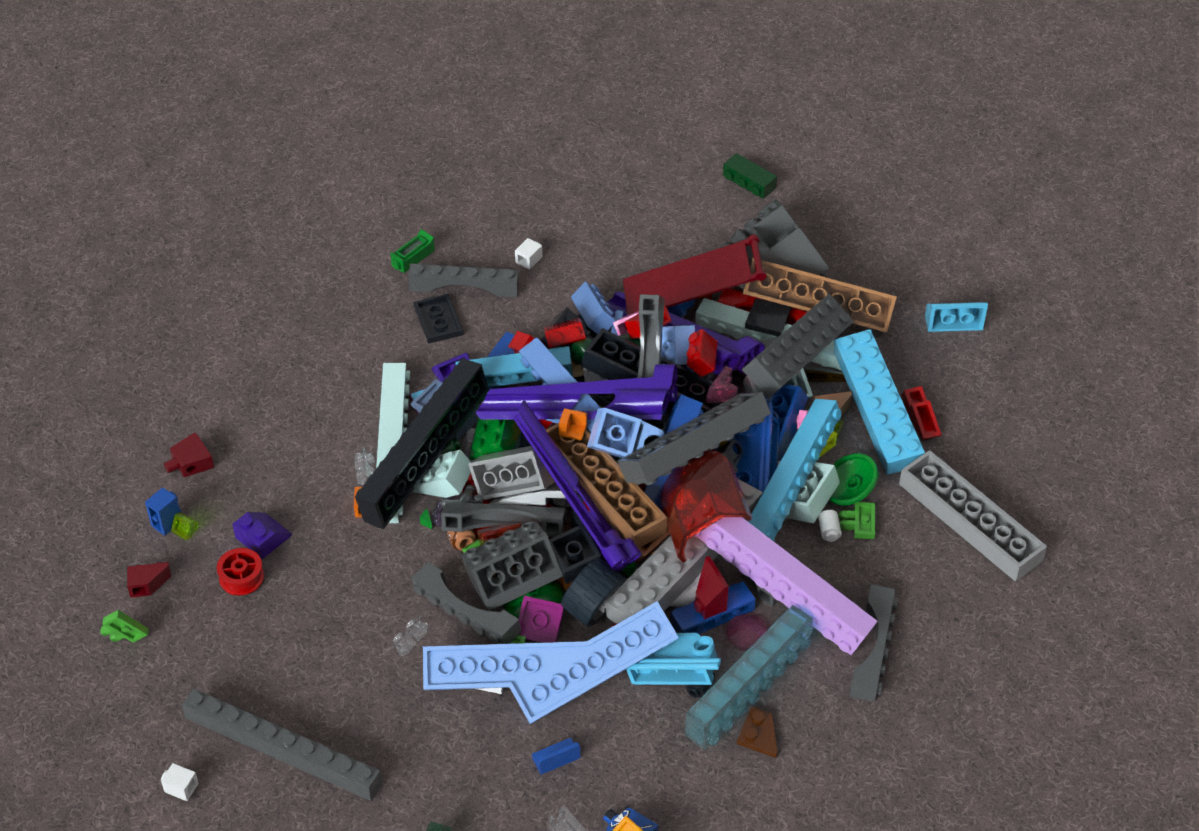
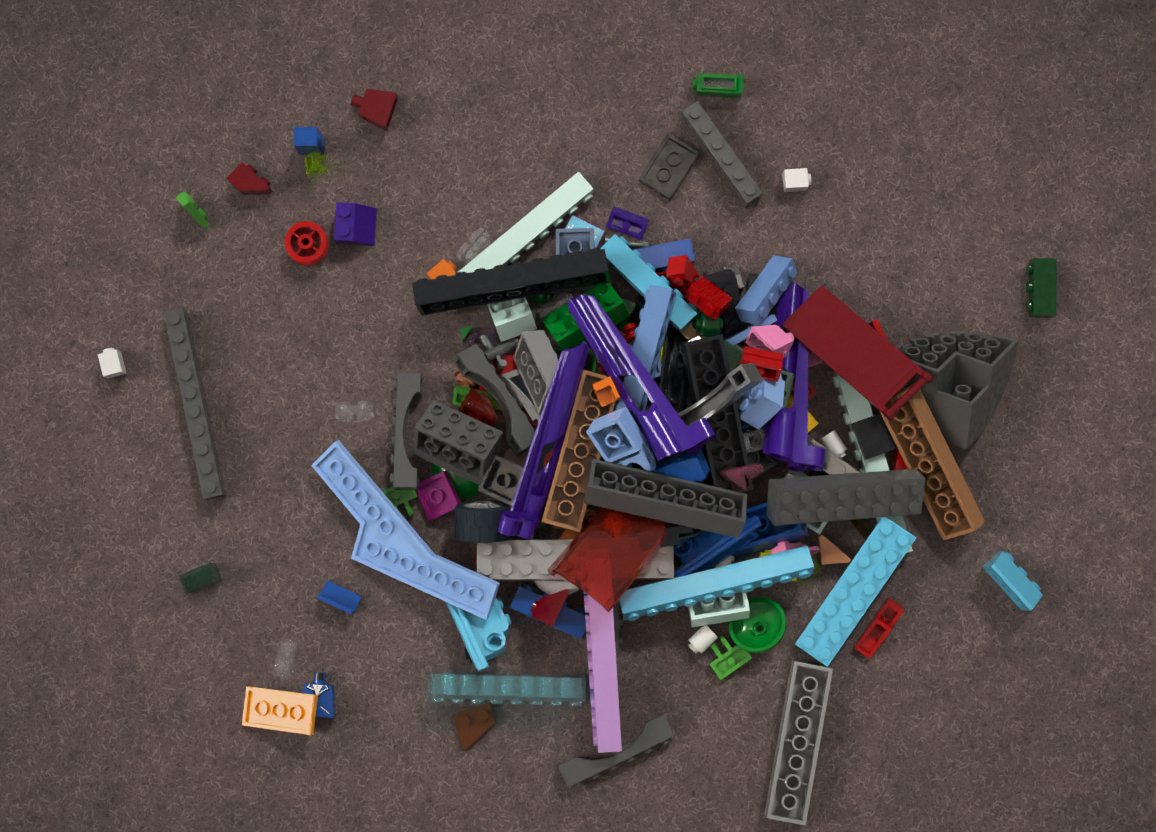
camera: 50 degrees right, 35 degrees up
(701, 352) = (761, 434): red brick -> none
(745, 630) = (555, 649): clear pink dish -> none

